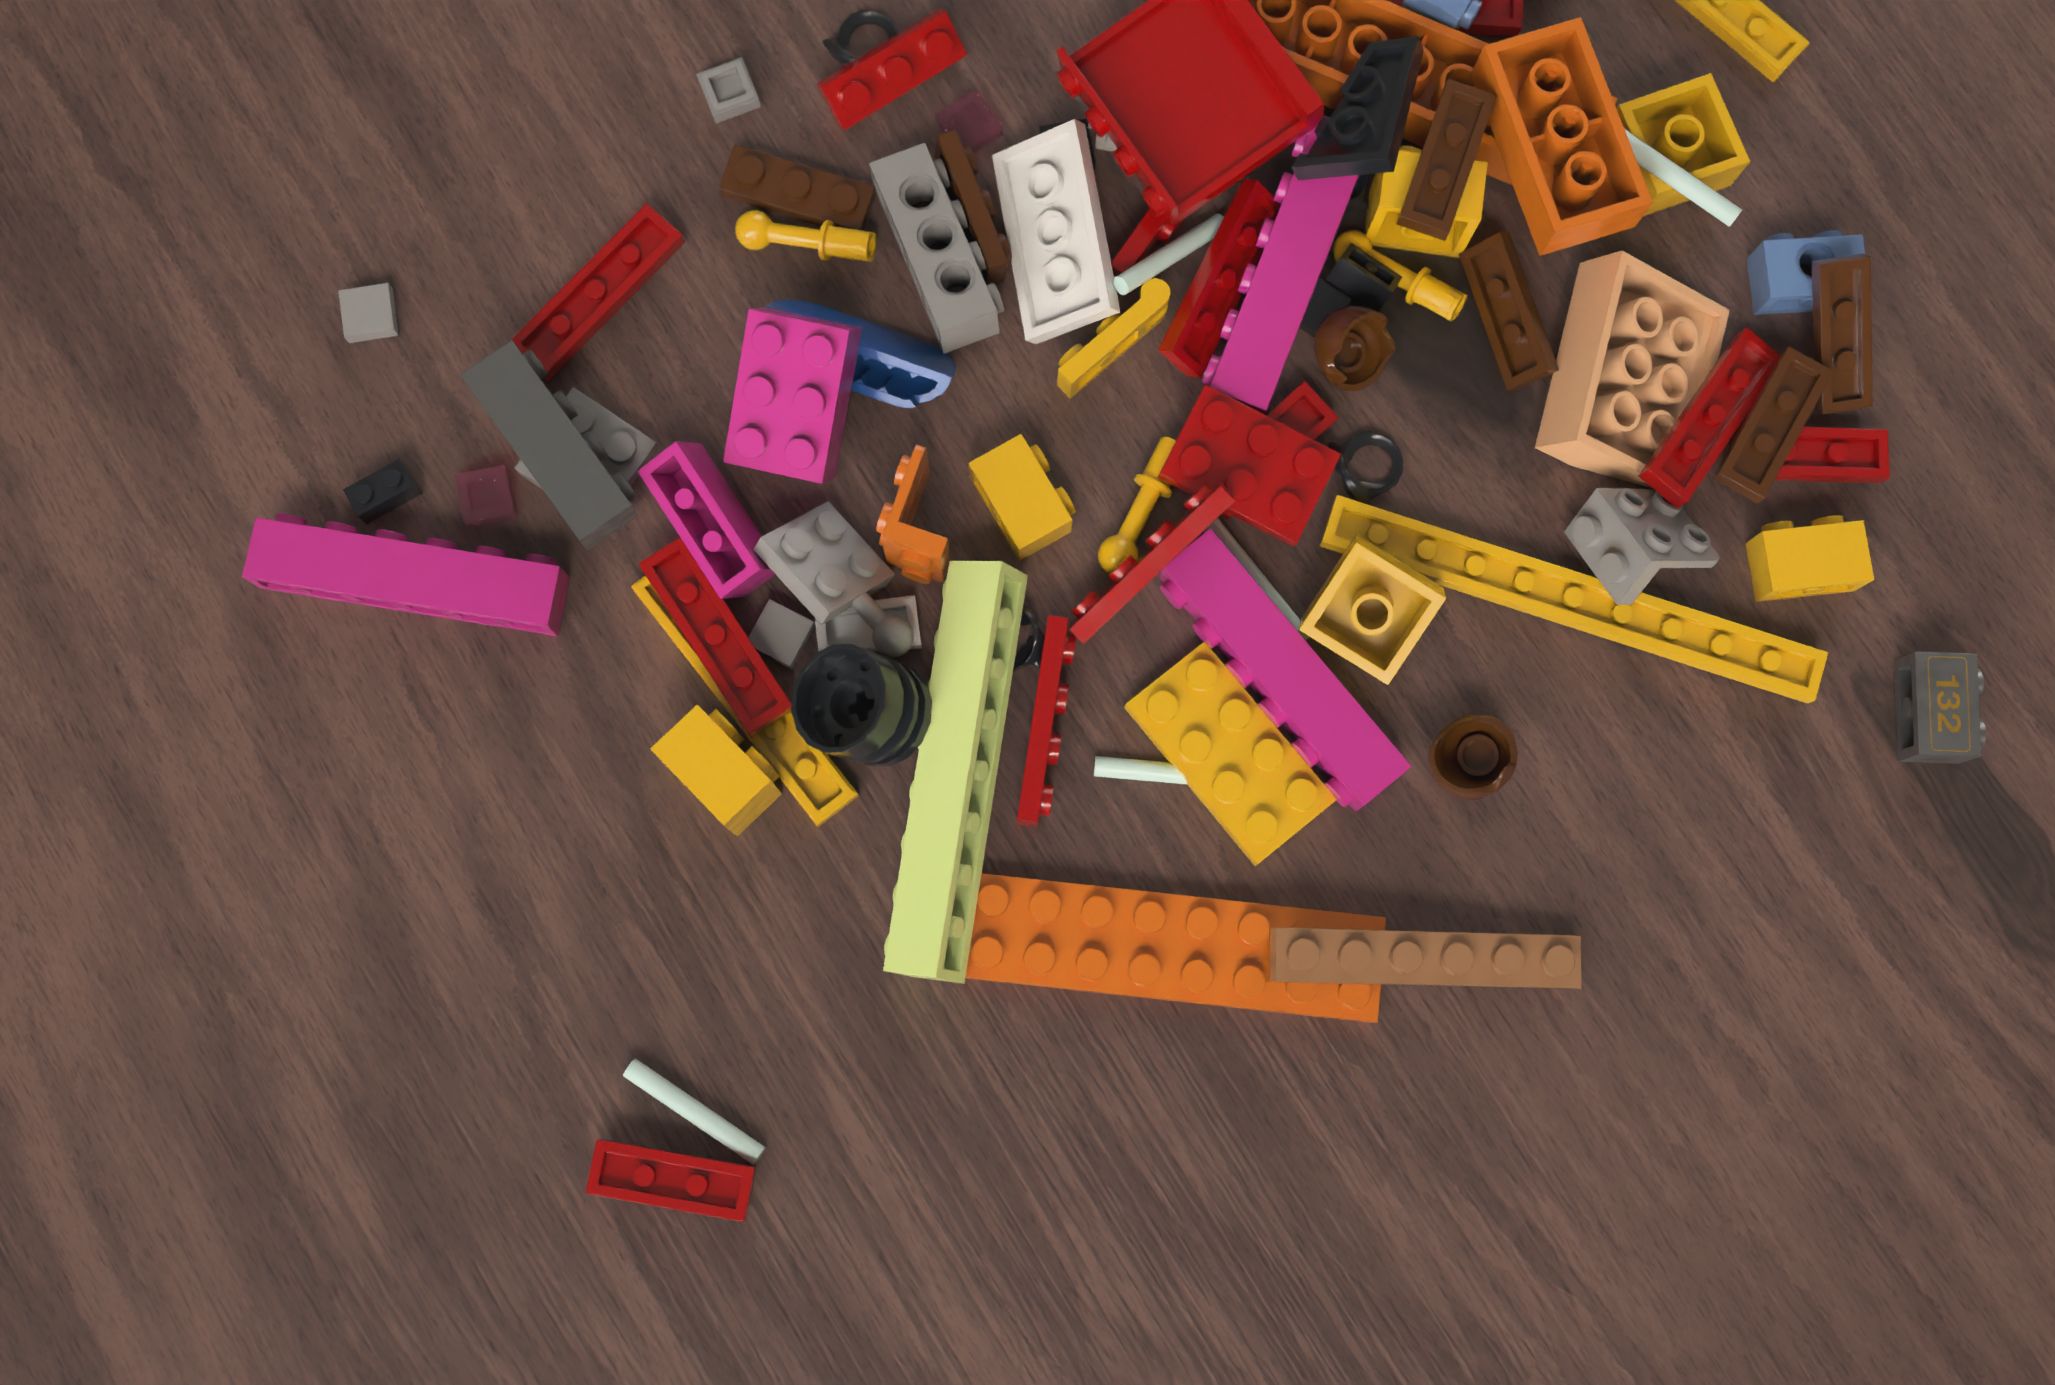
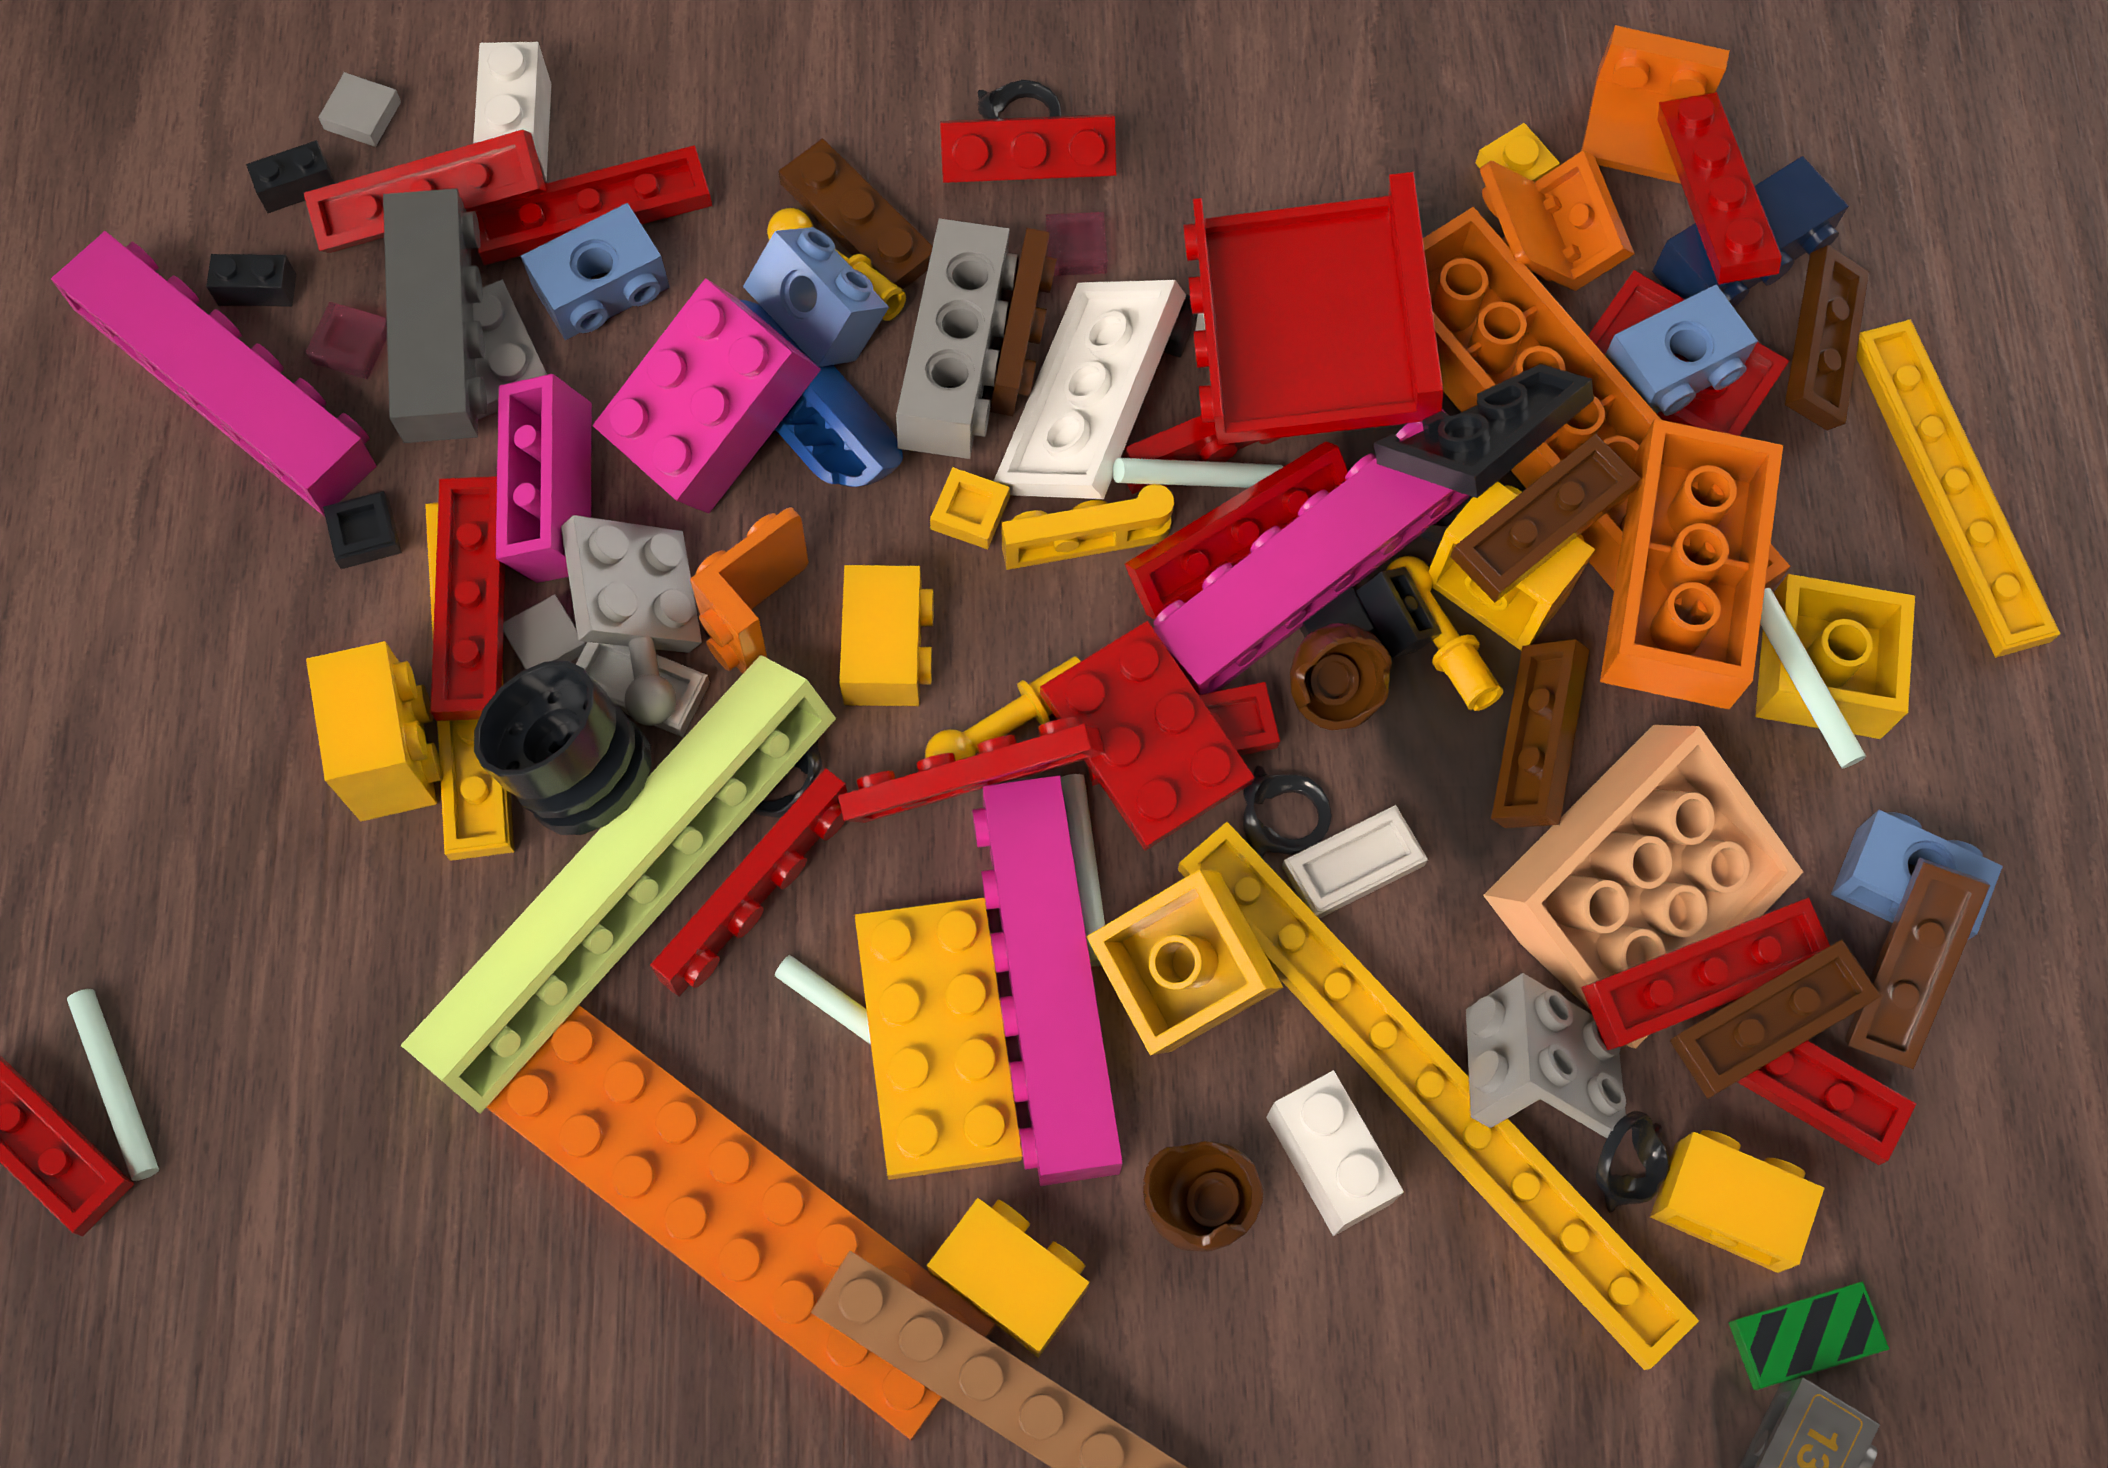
camera: 30 degrees right, 10 degrees down
(355, 394) = (286, 176): none -> black piece
(437, 383) = (482, 172): none -> red plate
(492, 251) = (513, 94): none -> white brick
(595, 630) = (362, 530): none -> black tile
(638, 315) = (608, 245): none -> medium blue brick
(728, 90) = (853, 87): light grey tile -> none
(791, 280) = (816, 296): none -> medium blue brick
(1021, 369) = (970, 508): none -> yellow plate
(1378, 881) = (1010, 1274): none -> yellow brick
(1433, 473) = (1355, 862): none -> white tile
(1539, 679) = (1334, 1153): none -> white brick
(1737, 560) = (1651, 1153): none -> black piece
(1896, 621) = (1808, 1335): none -> green tile

